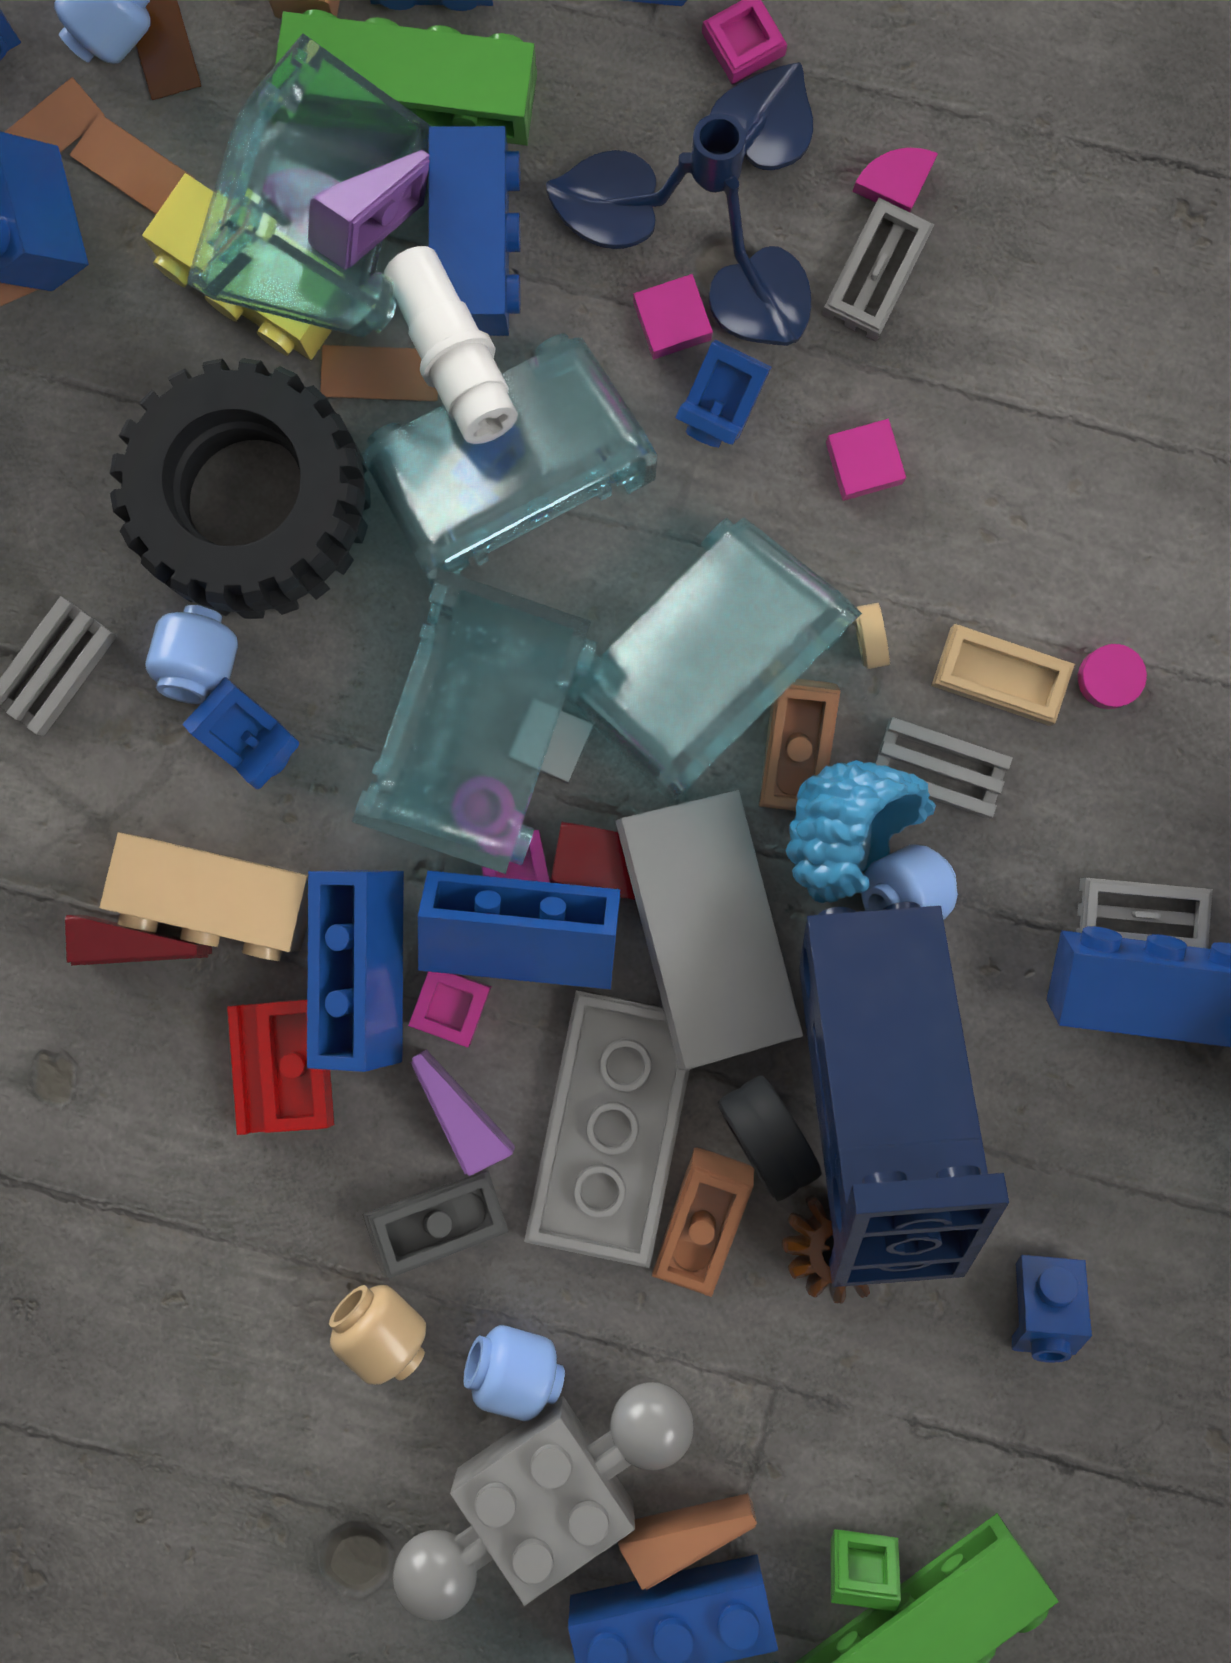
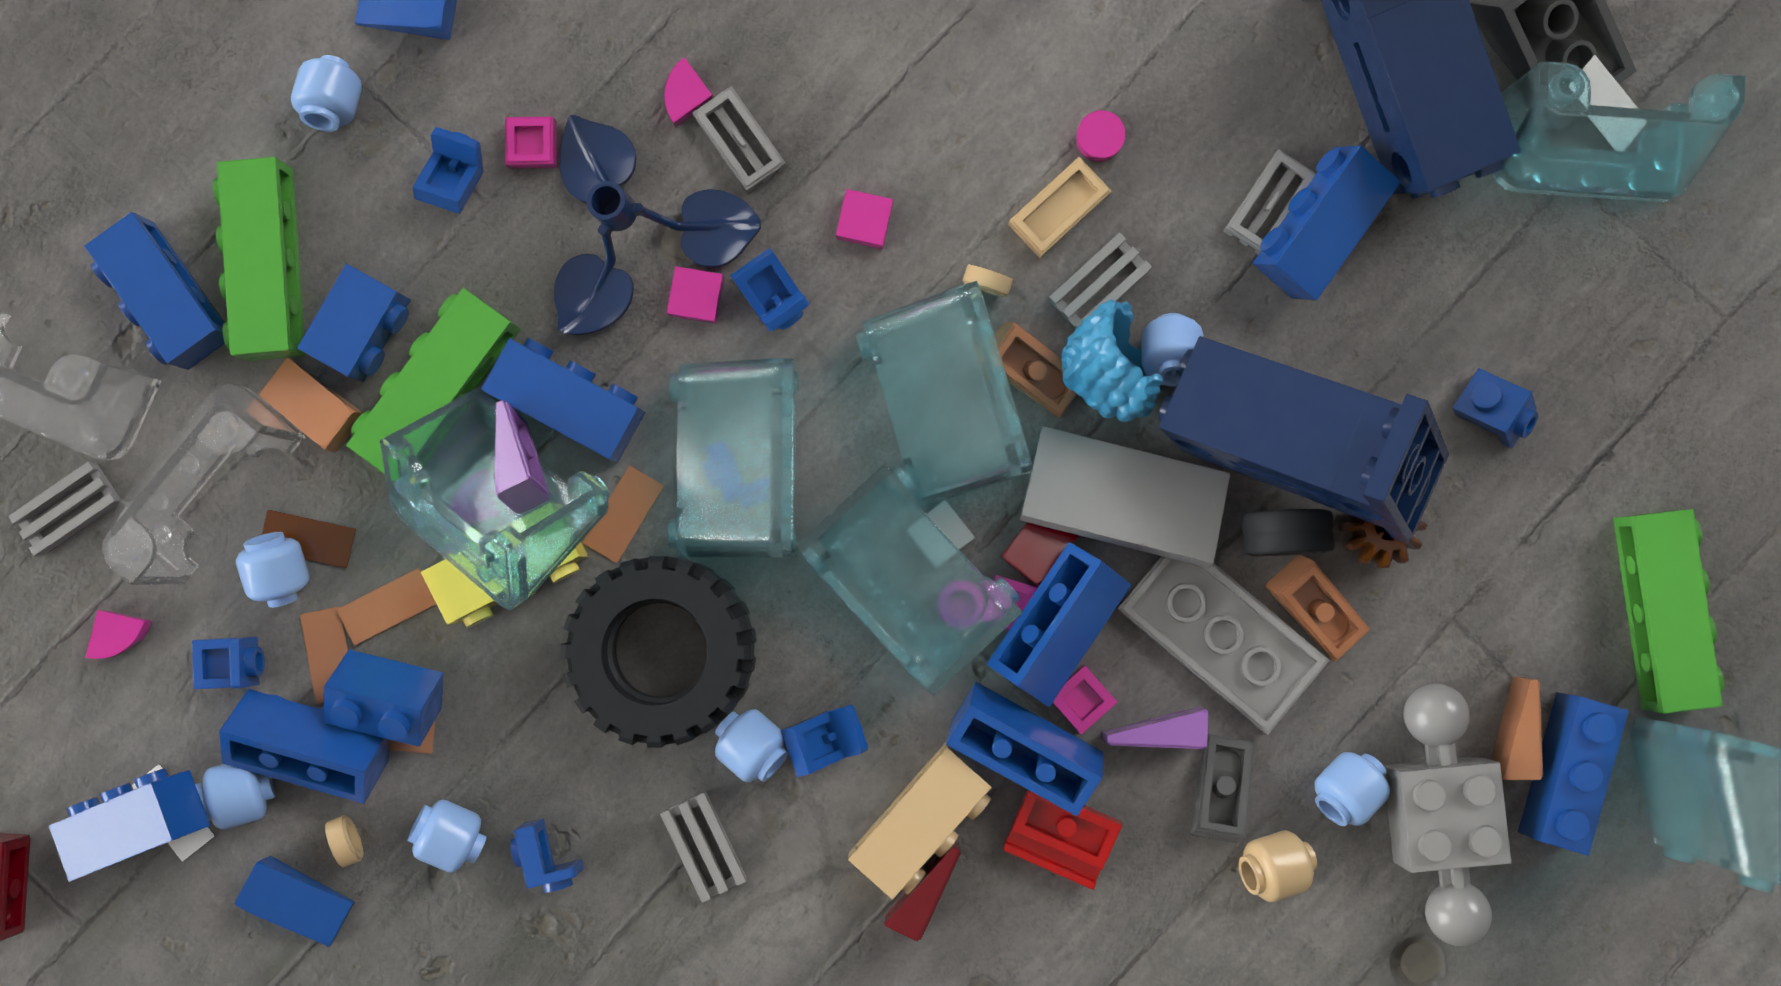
camera: 55 degrees left, 0 degrees up
(451, 347) = (646, 456): white piece -> none
(865, 1570) = (1605, 625): bright green tile -> none

